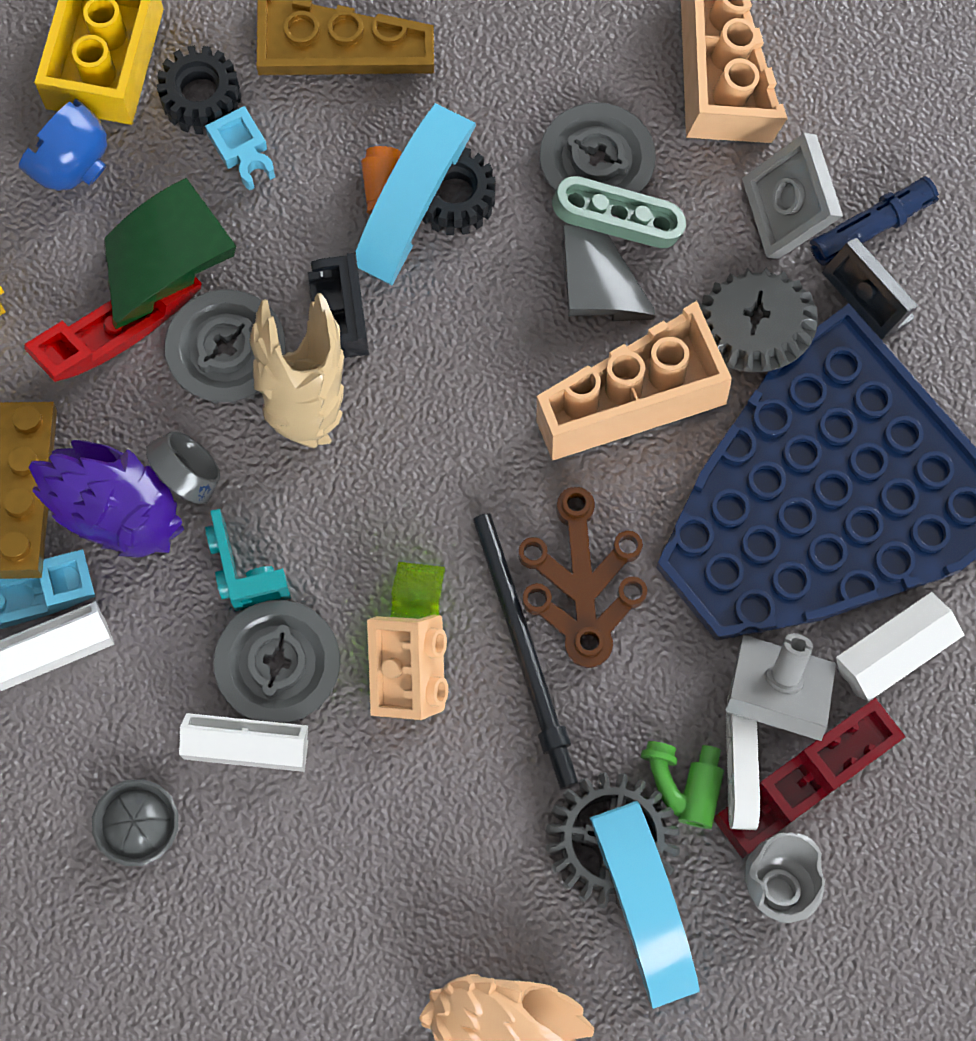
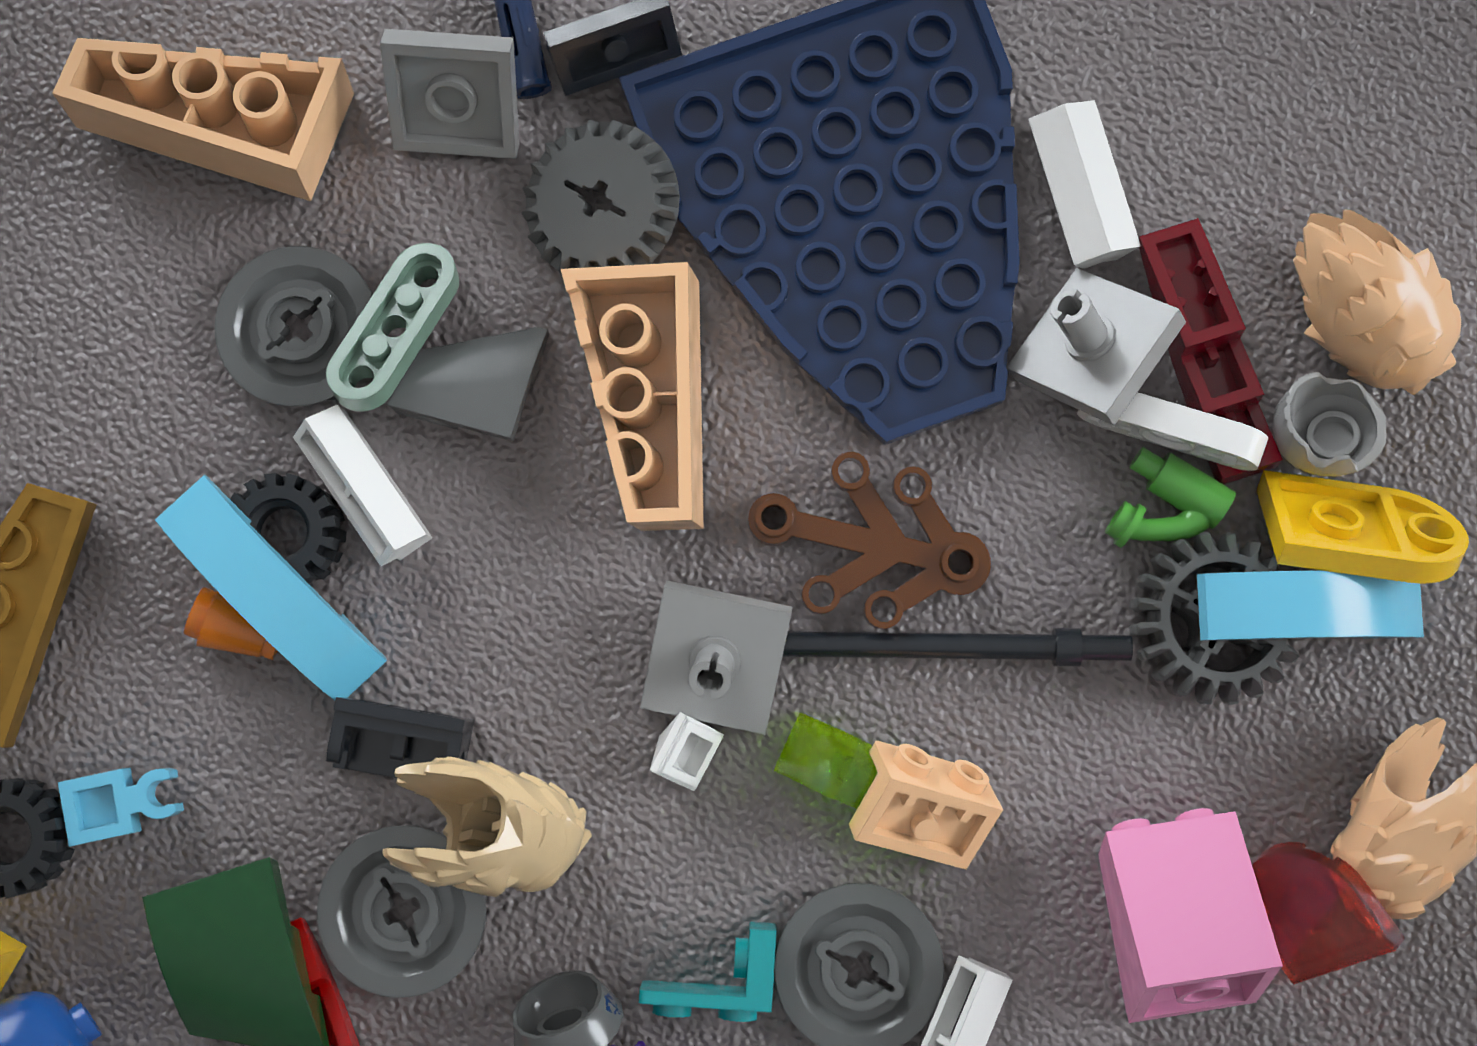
camera: 70 degrees left, 10 degrees up
(383, 877) = (1186, 915): none -> bright pink slope
(392, 496) = (685, 751): none -> white slope
(418, 968) = (1321, 912): none -> clear red tile
(464, 494) = (716, 657): none -> light grey tile
(504, 229) = (361, 485): none -> white piece
(715, 923) = (1359, 529): none -> yellow tile
(891, 880) = (1376, 302): none -> light nougat head

